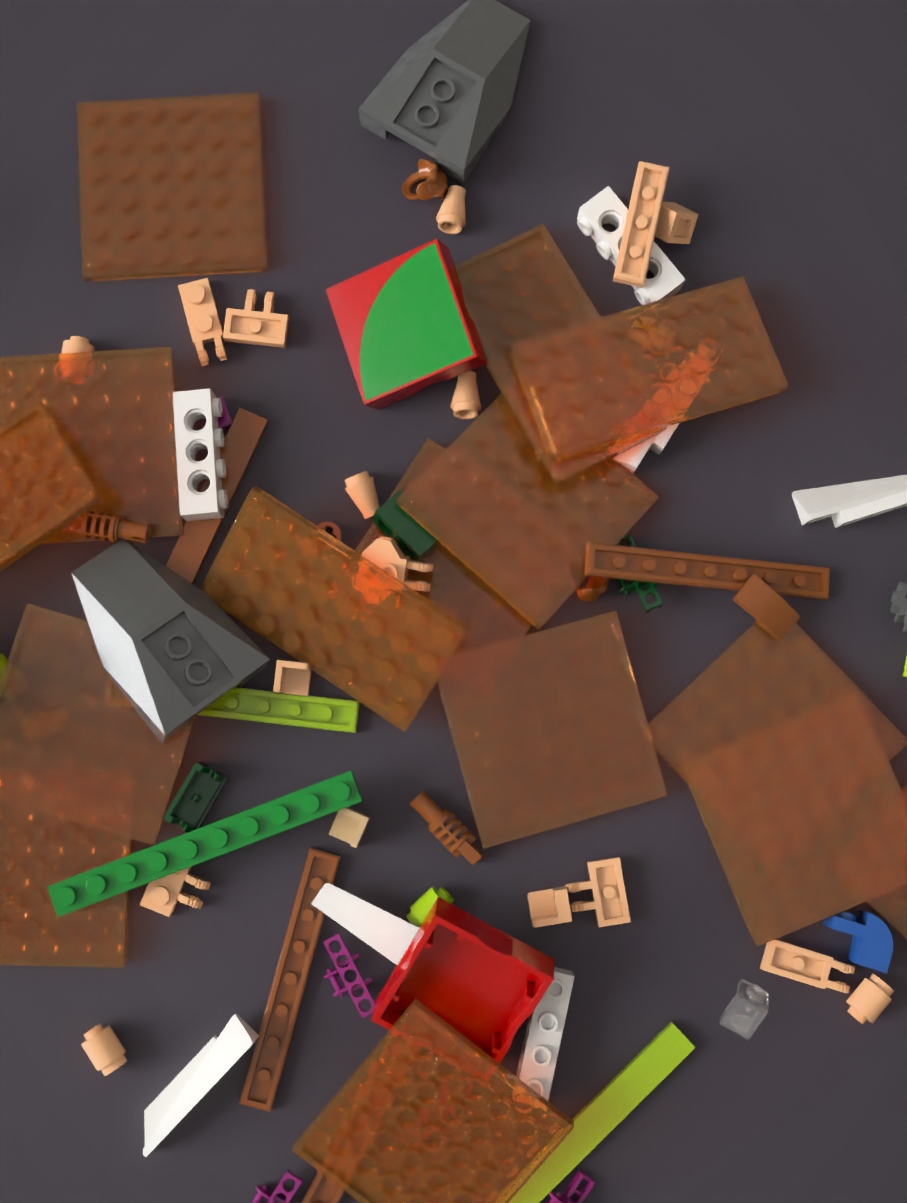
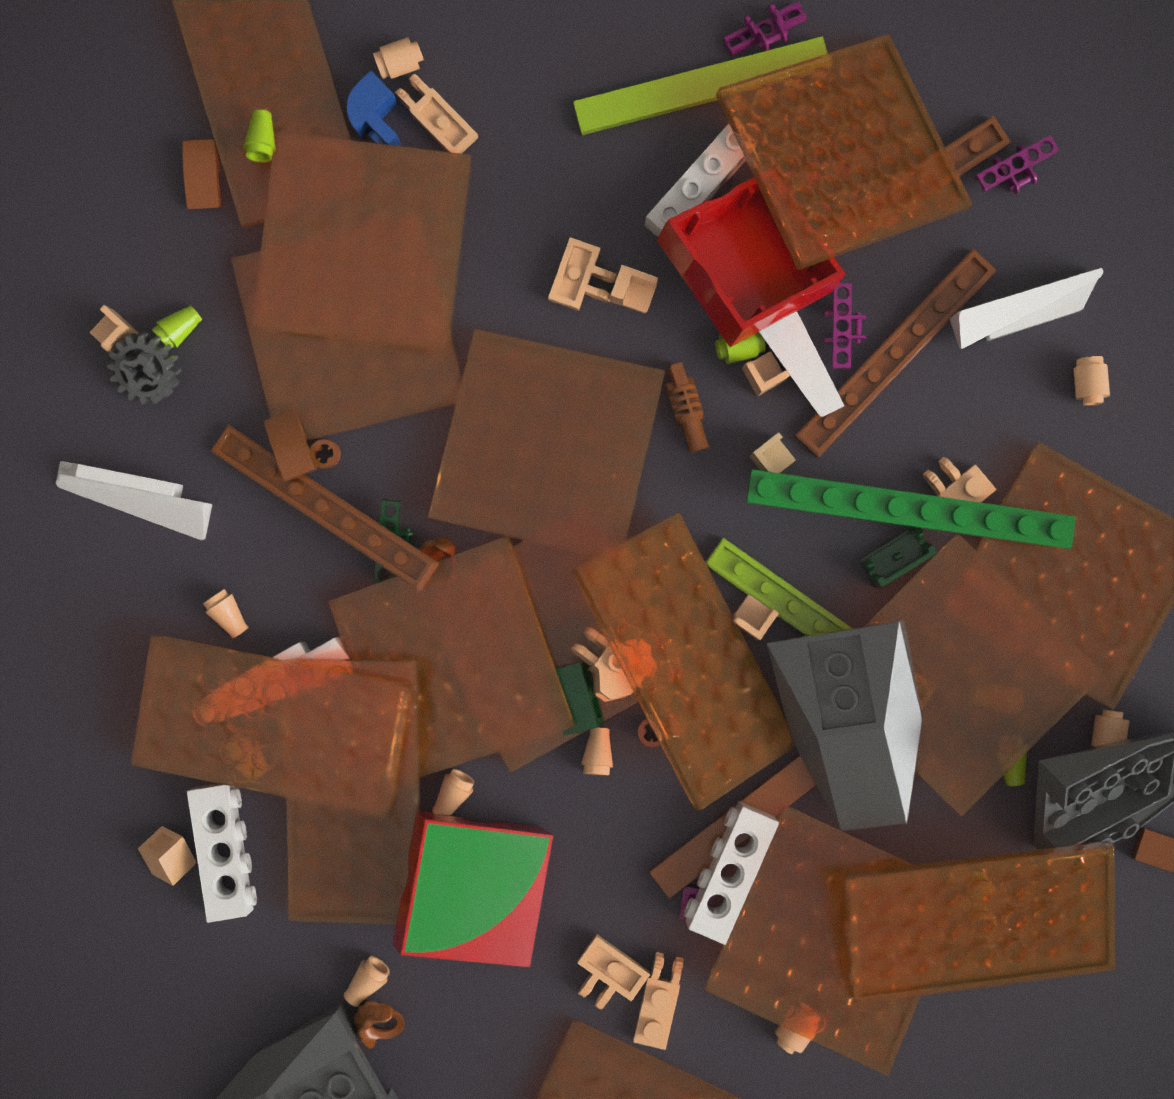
camera: 150 degrees left, 5 degrees up
(108, 527) = (848, 846): dark orange hinge -> none
(395, 896) = (764, 373): none -> light nougat panel
(641, 224) = (197, 867): light nougat tile -> none
(723, 615) = (331, 461): none -> dark orange bush
(738, 441) = (225, 613): none -> light nougat cone
(746, 1009) = (510, 108): clear bracket -> none

